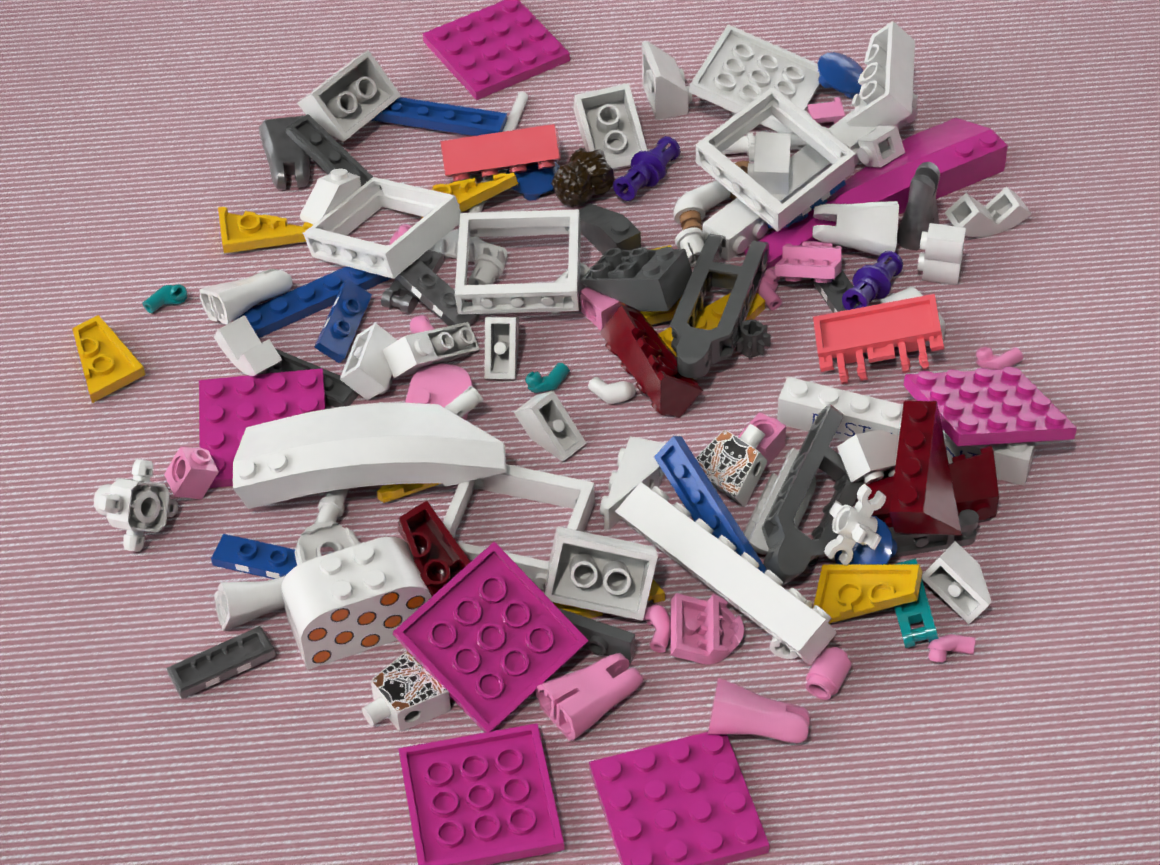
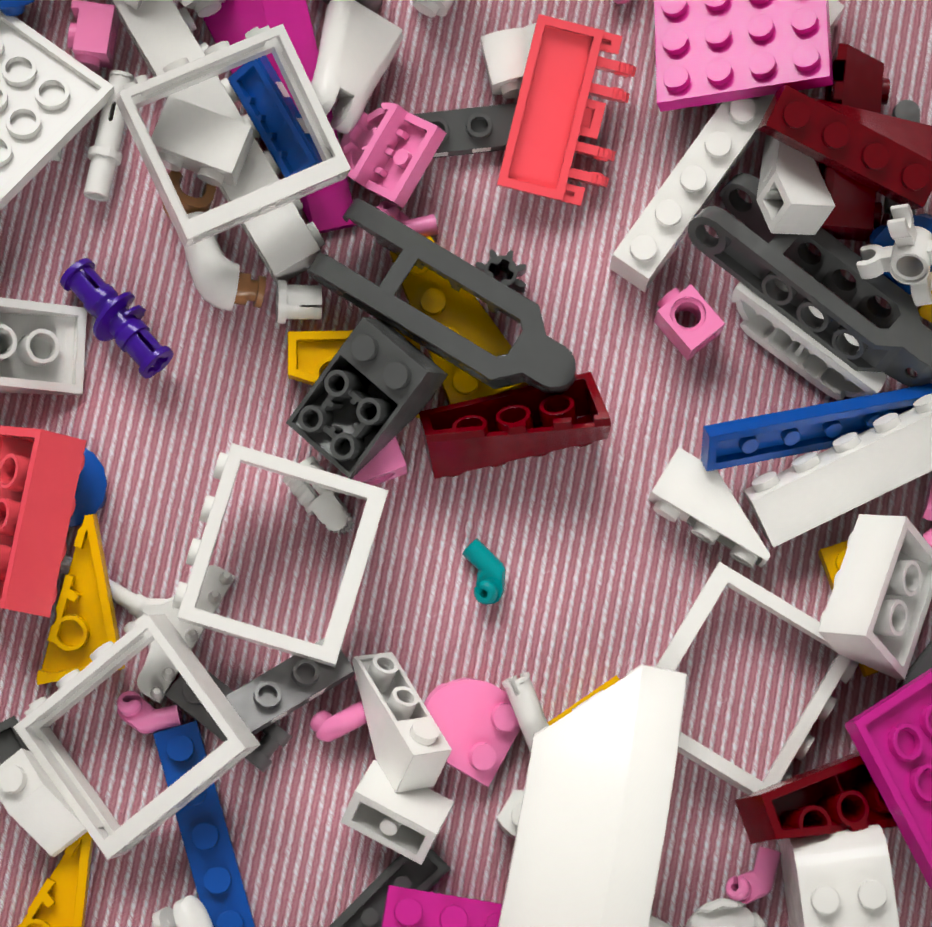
camera: 80 degrees left, 30 degrees up
(343, 321) = (288, 835): blue plate -> none
(486, 270) = (257, 607): white bush -> none
(501, 347) = (410, 620): white slope -> none
(550, 425) = (580, 592): white slope -> none
(582, 177) = (112, 417): dark brown hair -> none
(608, 229) = (220, 414): dark grey slope -> none
(613, 392) = (537, 493): white arm -> none
(734, 463) = (732, 373): white torso -> none
(873, 281) = (455, 85): dark purple piece -> none

